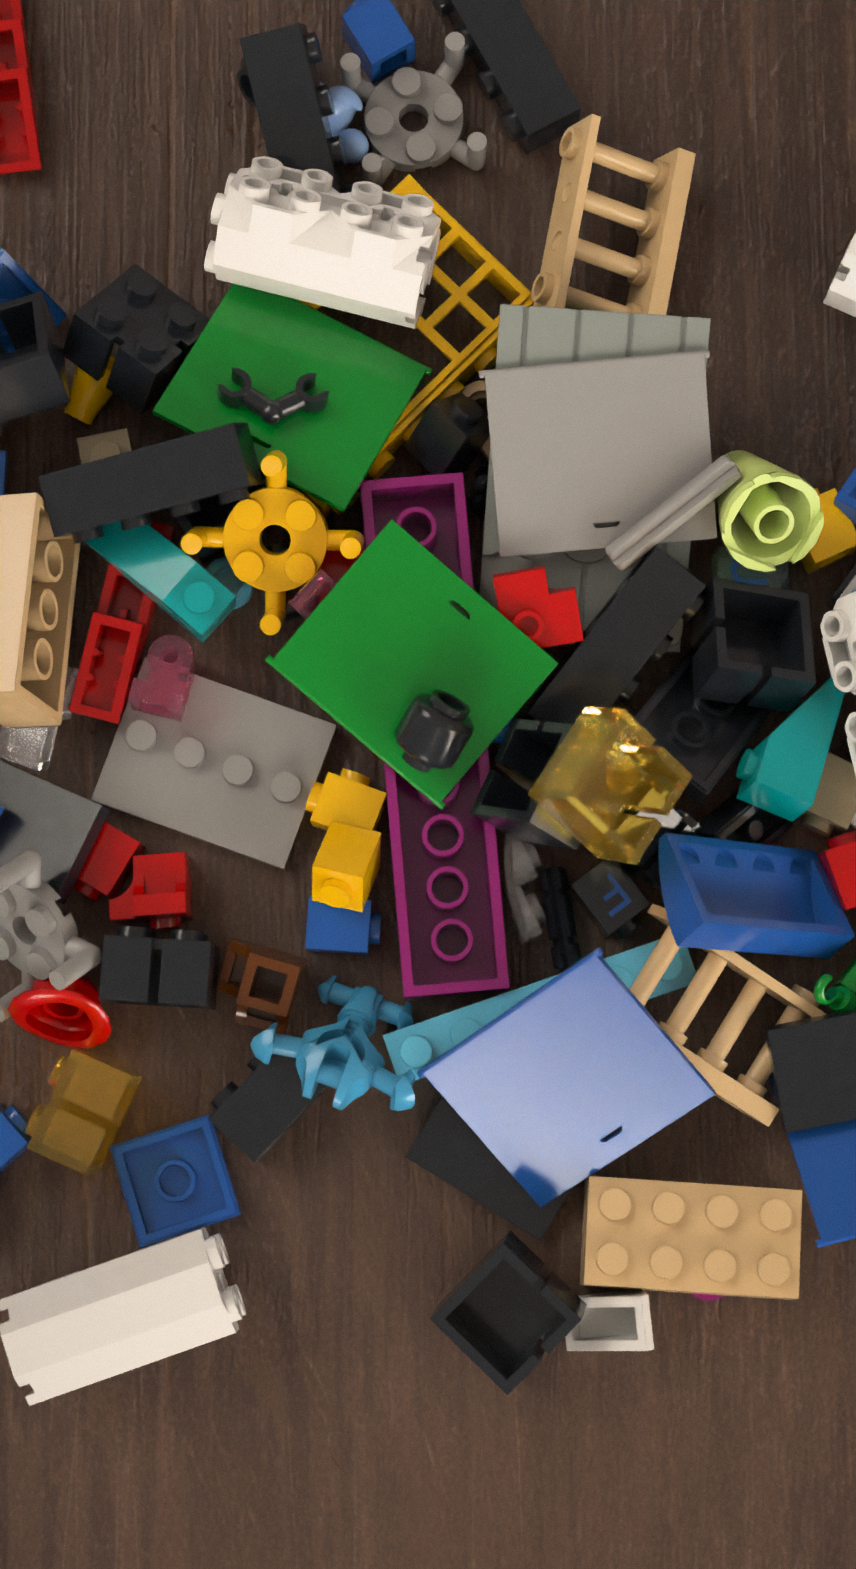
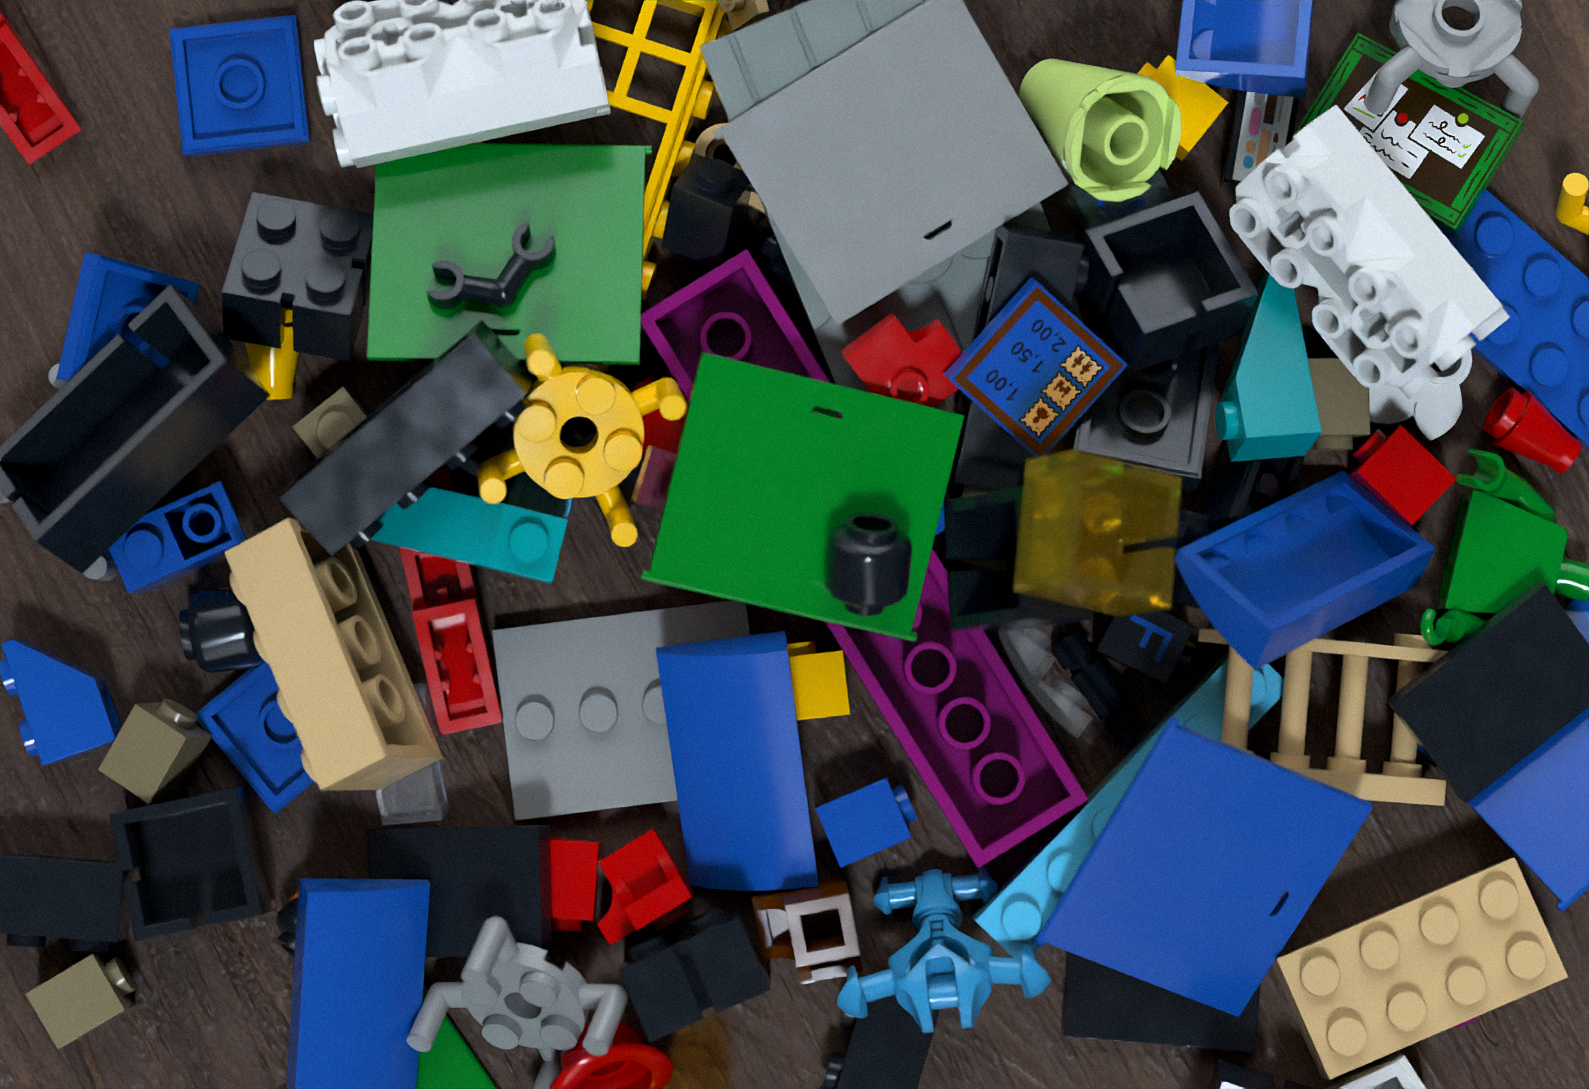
camera: 30 degrees left, 5 degrees up
(166, 194) = (240, 86): none -> blue tile
(169, 679) = (535, 637): clear pink leg -> none
(270, 835) = (738, 763): none -> blue slope
(346, 866) = (841, 756): yellow brick -> none
(627, 654) = (1035, 369): none -> tile
(673, 512) = (1007, 182): light grey axle -> none

